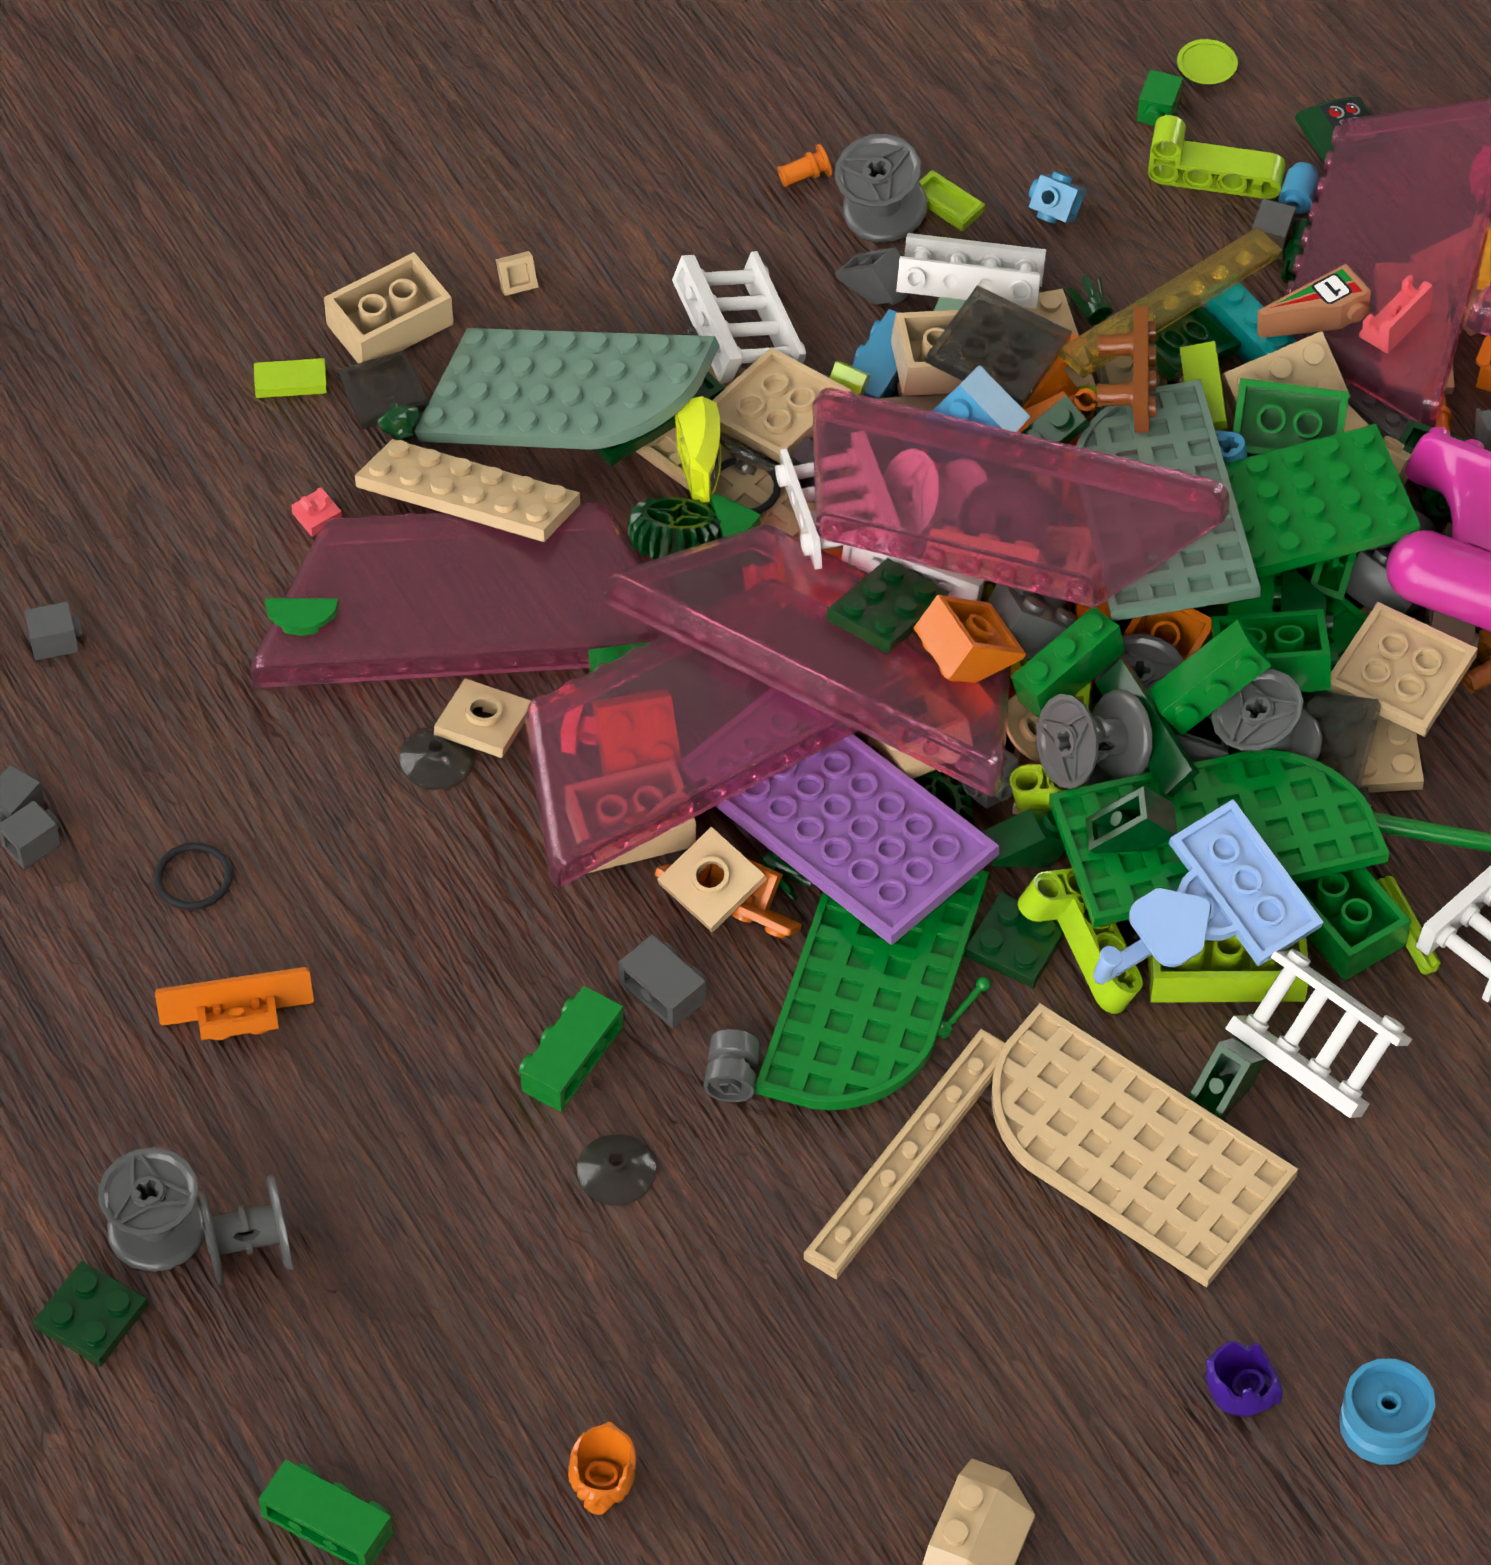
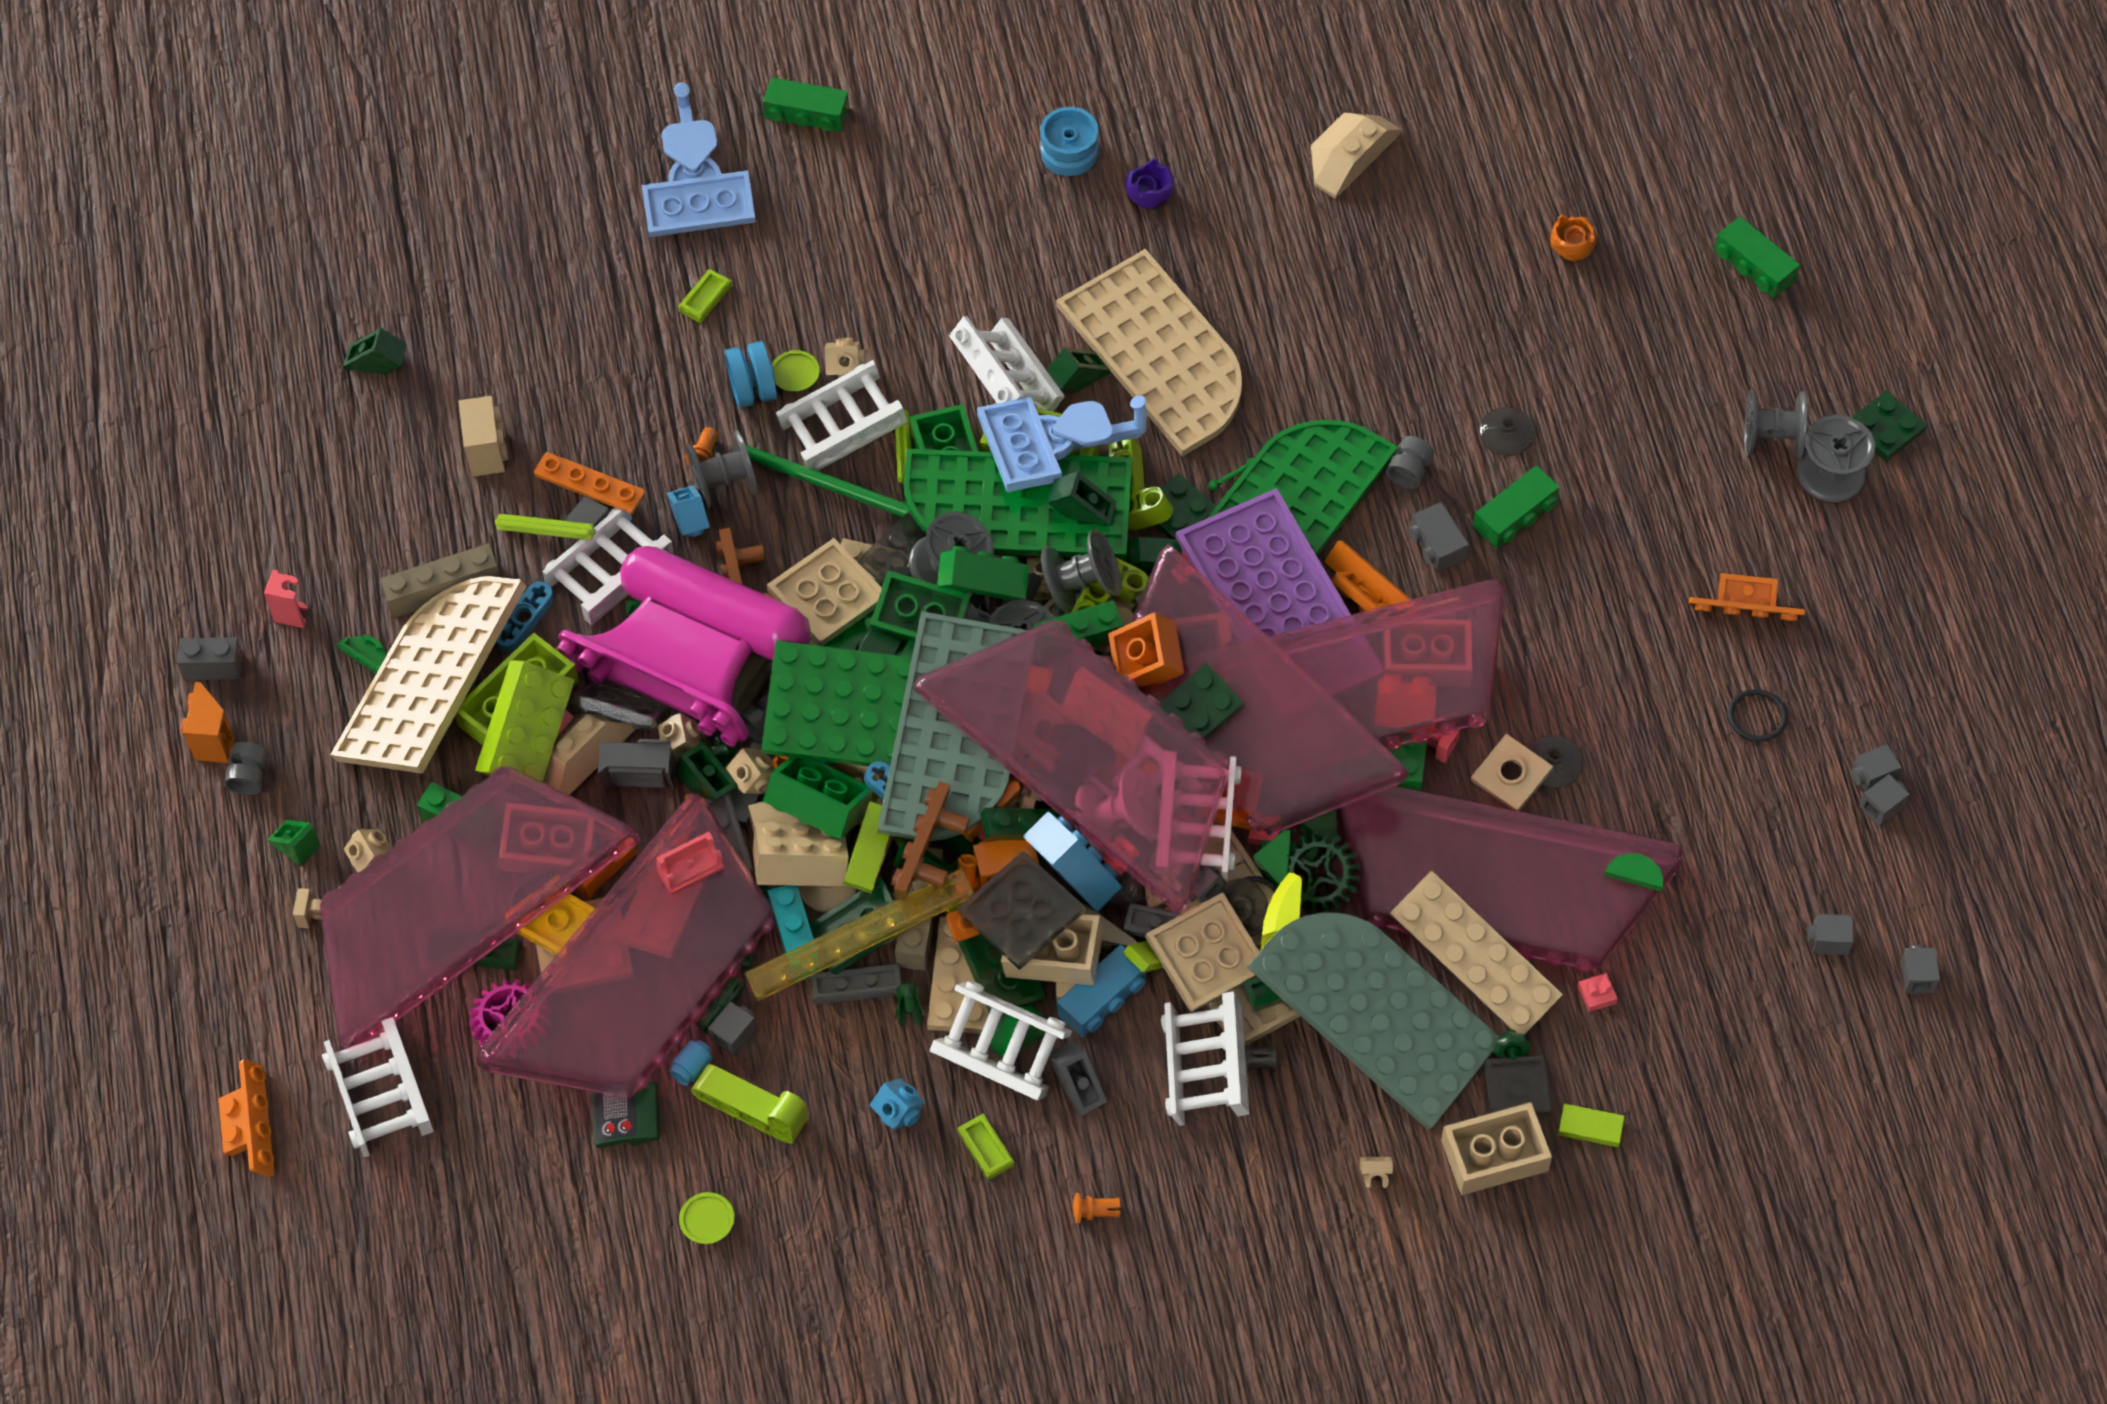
camera: 160 degrees left, 5 degrees up
(717, 903) = (1381, 594): tan piece -> none
(881, 187) = (1045, 1140): dark grey piece -> none
(905, 1156) = (1306, 388): tan tile -> none
(1159, 97) = (766, 1186): green brick -> none
(1168, 758) = (1034, 538): dark green tile -> none
(1318, 306) = (743, 891): nougat slope -> none

